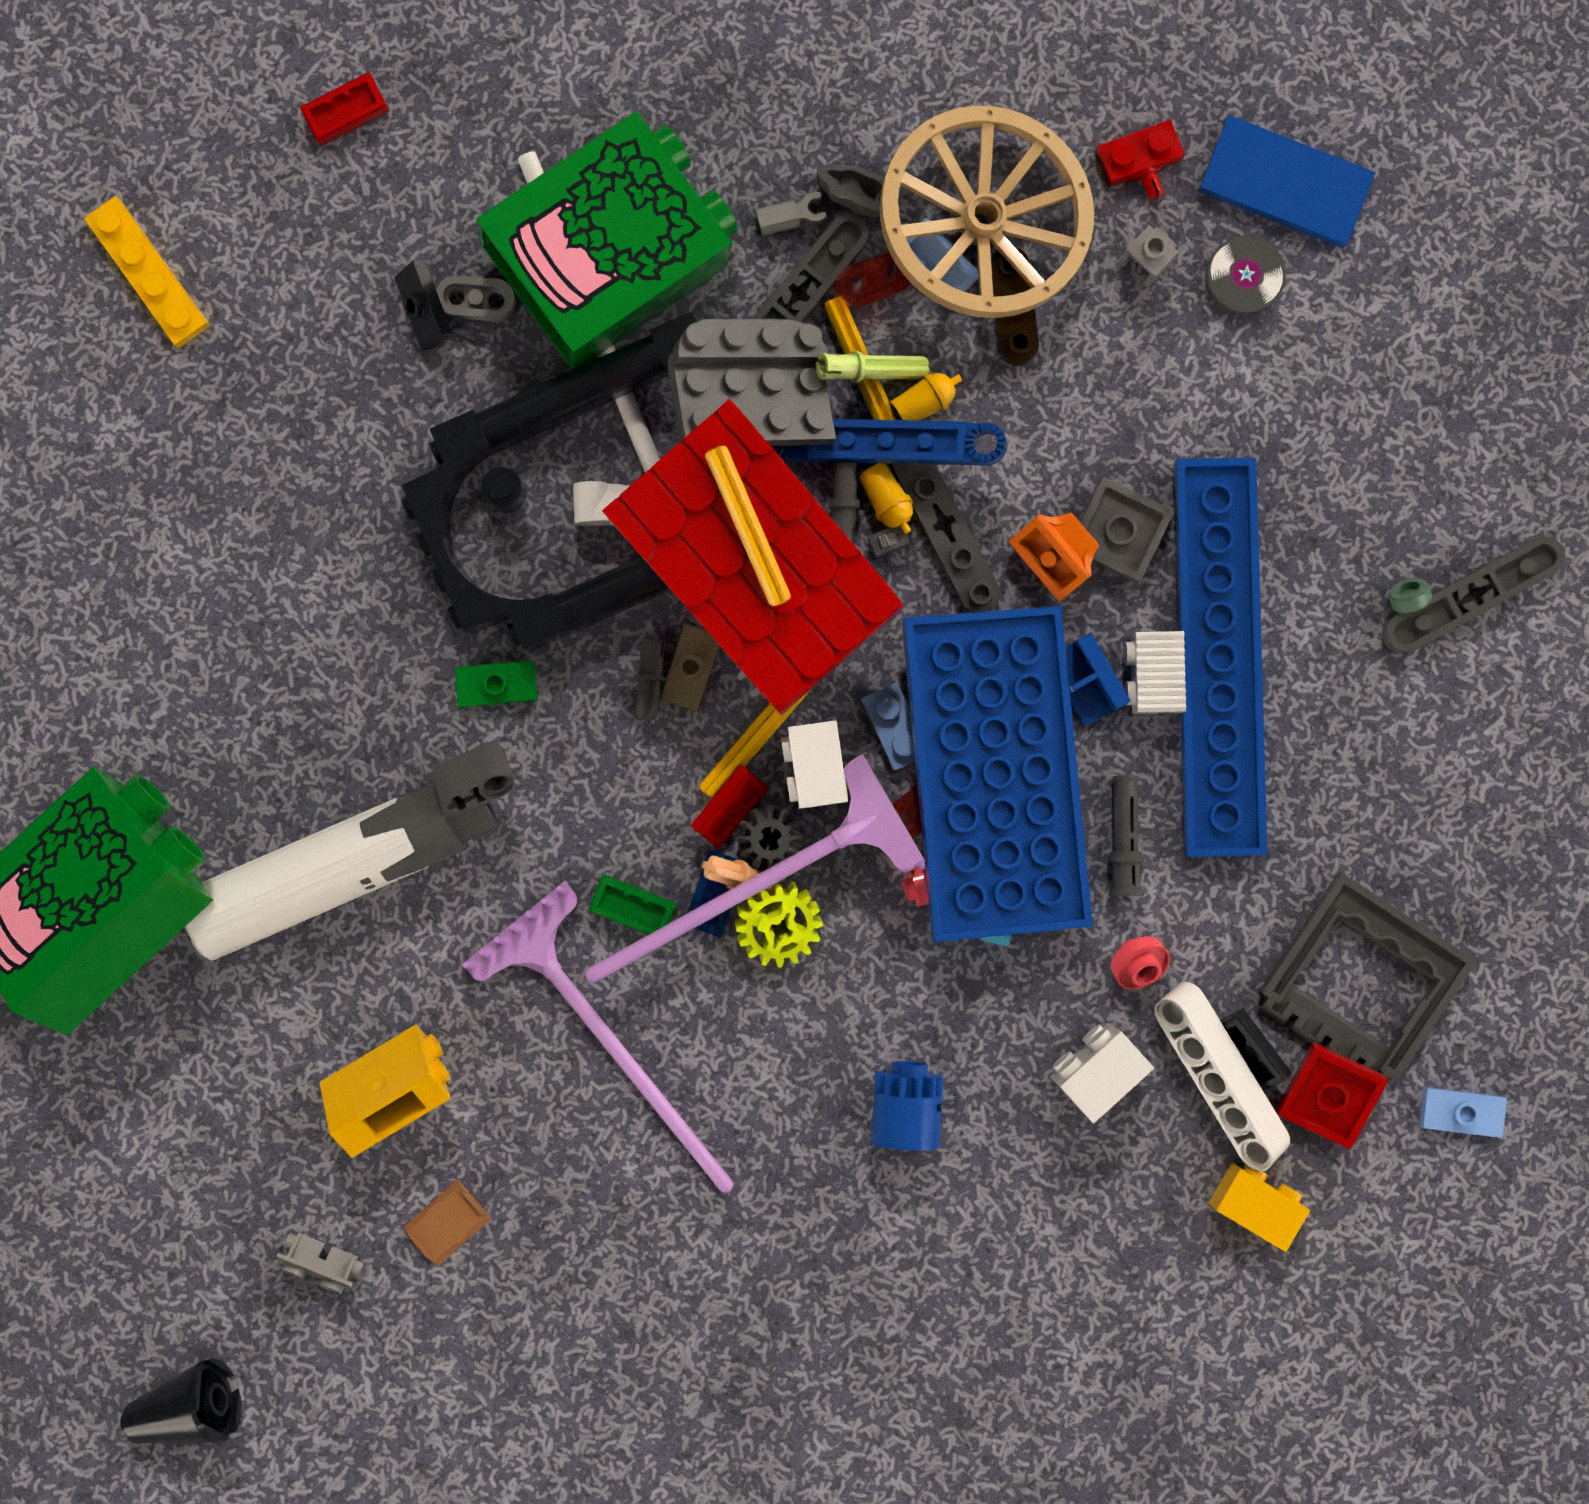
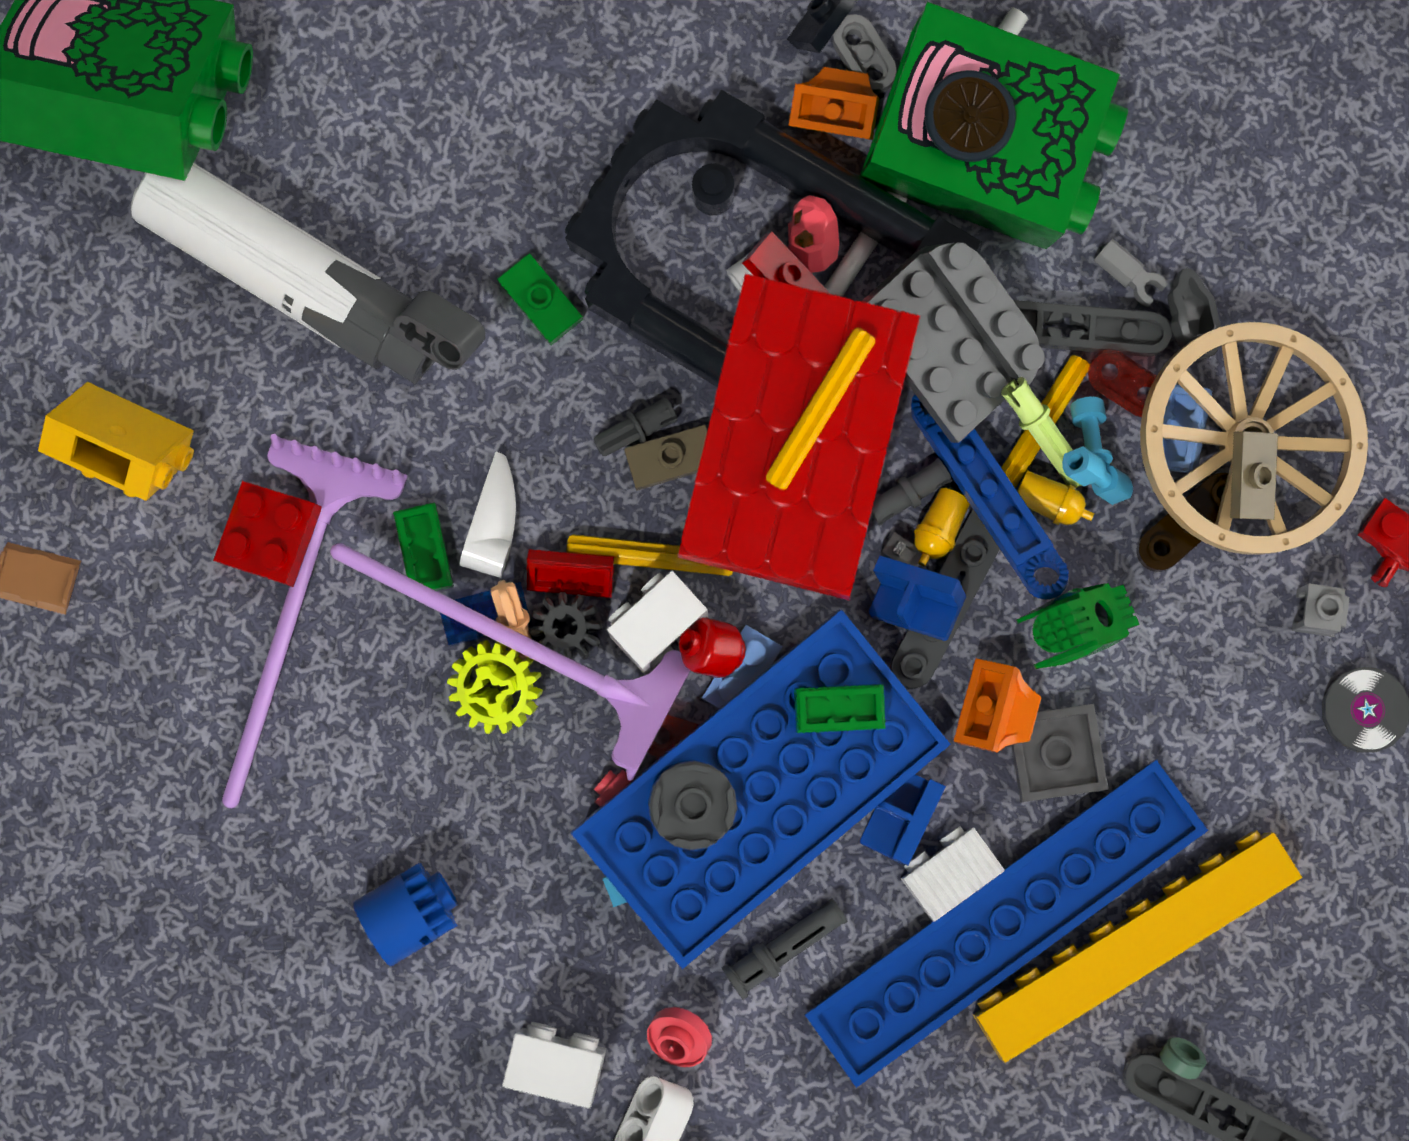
camera: 60 degrees right, 5 degrees down
(502, 347) = (836, 104): none -> orange slope
(537, 1020) = (267, 533): none -> red plate
(591, 249) = (970, 116): none -> dark brown wheel
(595, 438) = (814, 233): none -> coral rock
(605, 481) = (776, 262): none -> red plate
(648, 838) = (493, 522): none -> white piece
(865, 736) = (712, 648): none -> red head
(921, 349) = (1091, 463): none -> medium azure bar
(932, 555) = (916, 598): none -> blue panel
(976, 834) = (692, 805): none -> dark grey tile
(980, 671) = (839, 708): none -> green plate
(1016, 232) = (1254, 475): none -> dark tan plate
(1042, 448) = (1073, 622): none -> green piece
(1303, 571) = (1136, 945): none -> yellow brick

